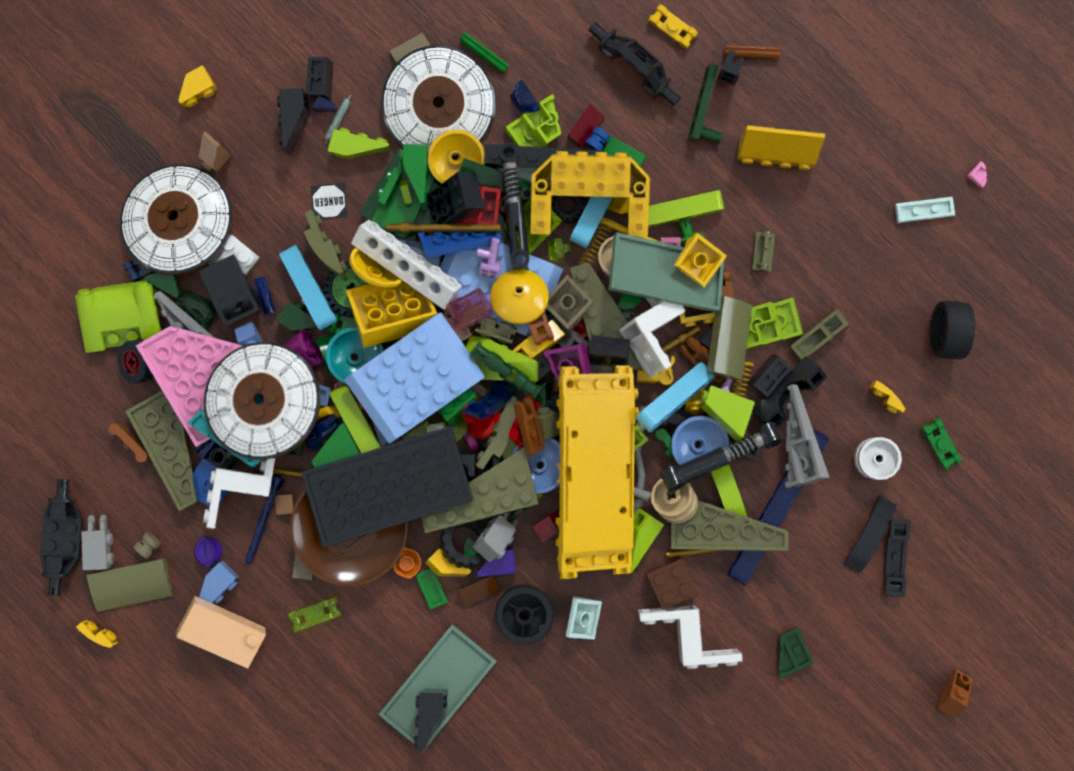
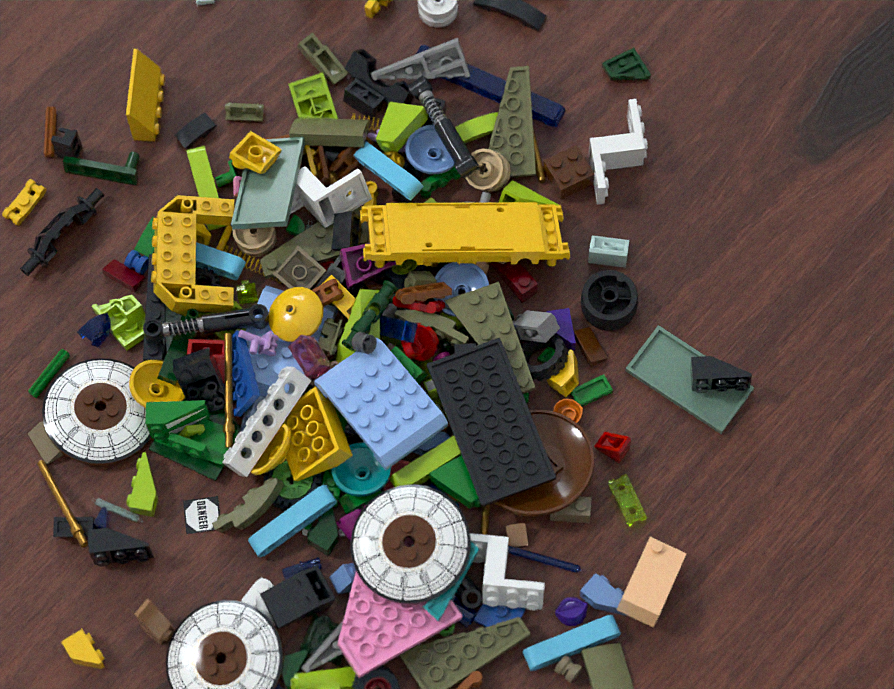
camera: 90 degrees left, 20 degrees down
(173, 550) = (571, 642): none -> medium azure beam
(306, 78) = (76, 529): none -> pearl gold bar
(370, 605) = (613, 445): none -> red slope
(473, 363) = (364, 342): none -> dark grey wheel
(687, 330) = (322, 167): none -> reddish brown slope
(744, 200) = (195, 129): none -> black slope

